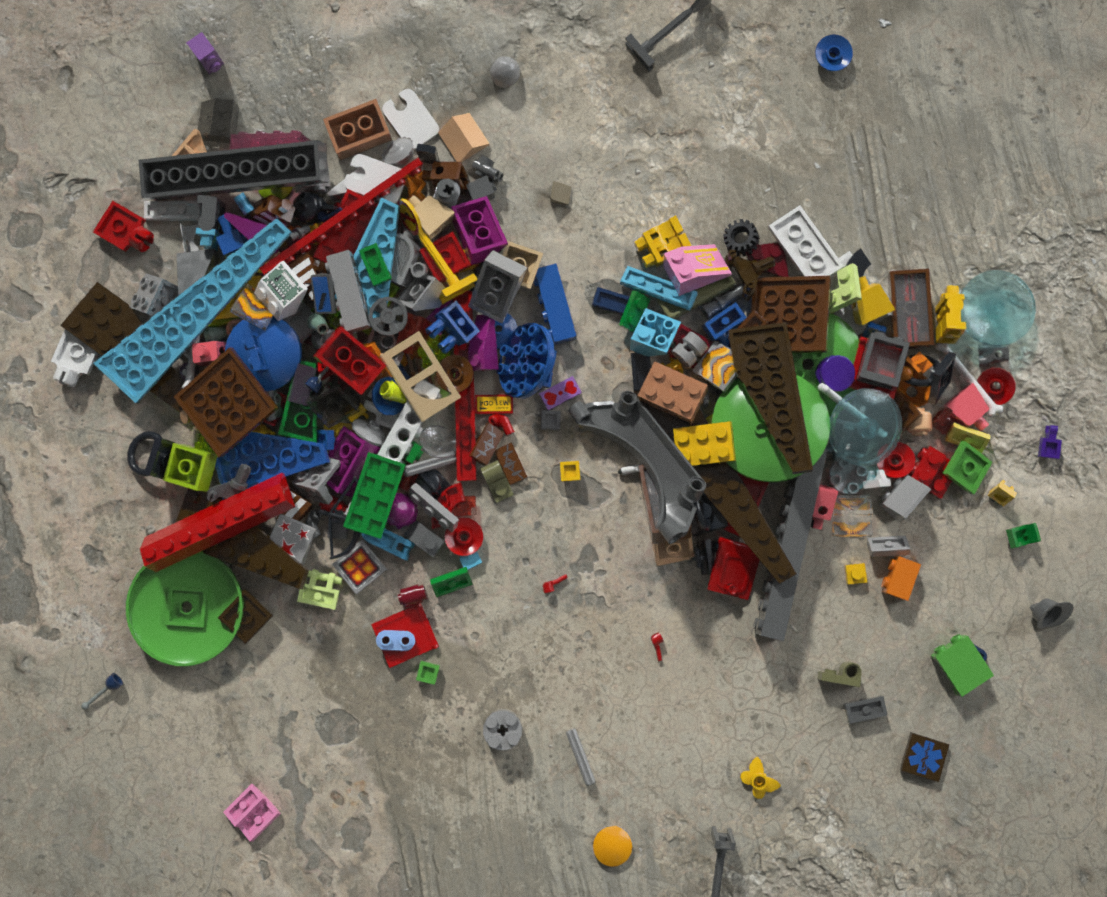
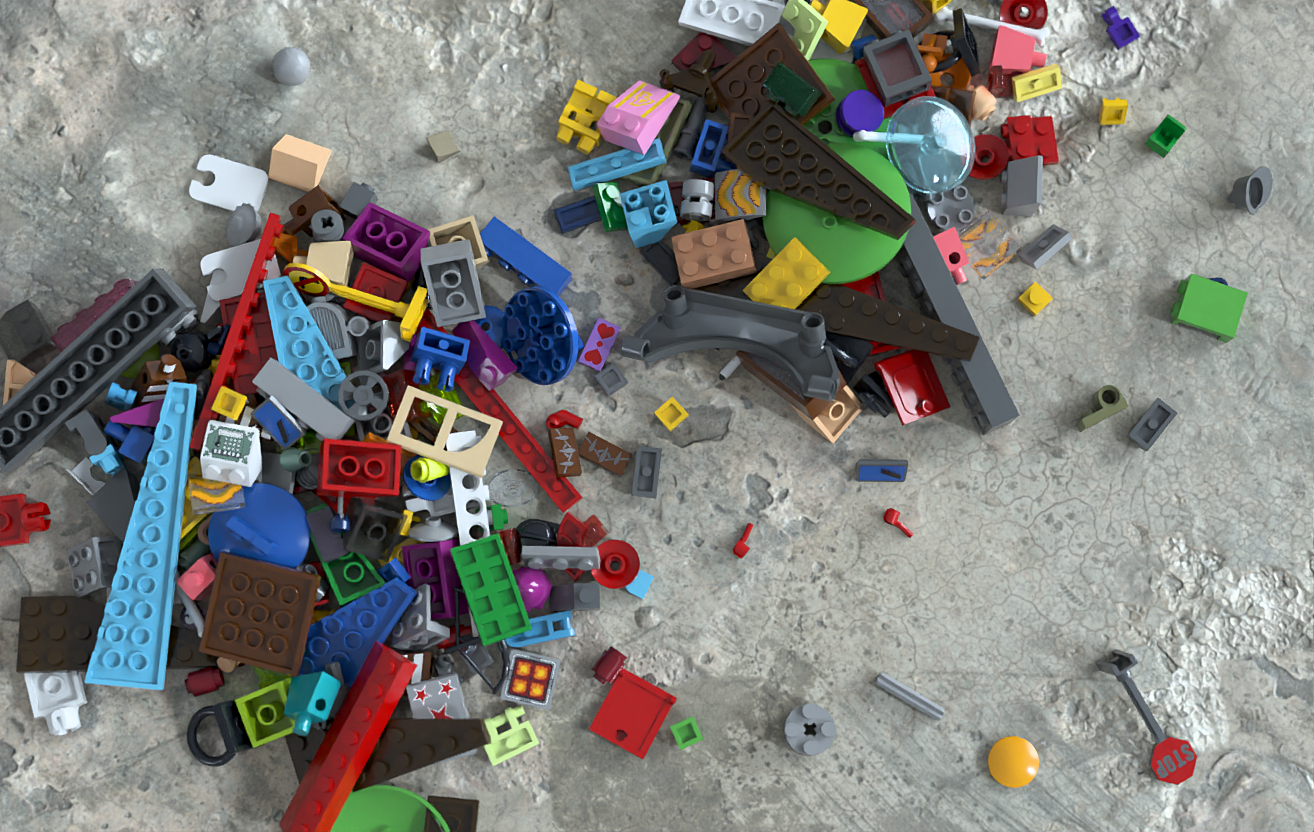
camera: 40 degrees left, 5 degrees down
(166, 416) = (204, 681): none -> dark red brick
(172, 211) = (47, 463): white tile -> none
(215, 478) = (310, 699): none -> teal torso
(302, 259) = (229, 403): none -> yellow tile
(357, 129) = (182, 234): nougat brick -> none
(375, 264) = (310, 352): green plate -> none
(395, 640) = (627, 724): light blue plate -> none
(427, 153) = (275, 203): black tile -> none
(427, 465) = (521, 518): light grey axle -> none
(451, 582) = (638, 620): green plate -> none
(454, 364) = (469, 394): reddish brown dish -> none
(485, 167) = (344, 175): dark grey plate -> none
(493, 404) = (540, 407): tile -> none
(497, 481) = (603, 482): olive plate -> none
(527, 494) = (646, 472): none -> dark grey plate
(672, 606) = (881, 470): none -> slope
(747, 246) = (649, 47): black tyre -> none
(758, 780) = (1103, 578): yellow animal -> none
(802, 325) = (790, 89): none -> clear green brick
(876, 481) = (983, 193): white tile -> none
(900, 578) = (1081, 268): orange brick -> none
(924, 757) = (1245, 427): dark brown tile -> none
(967, 467) = (1059, 111): bright green tile -> none

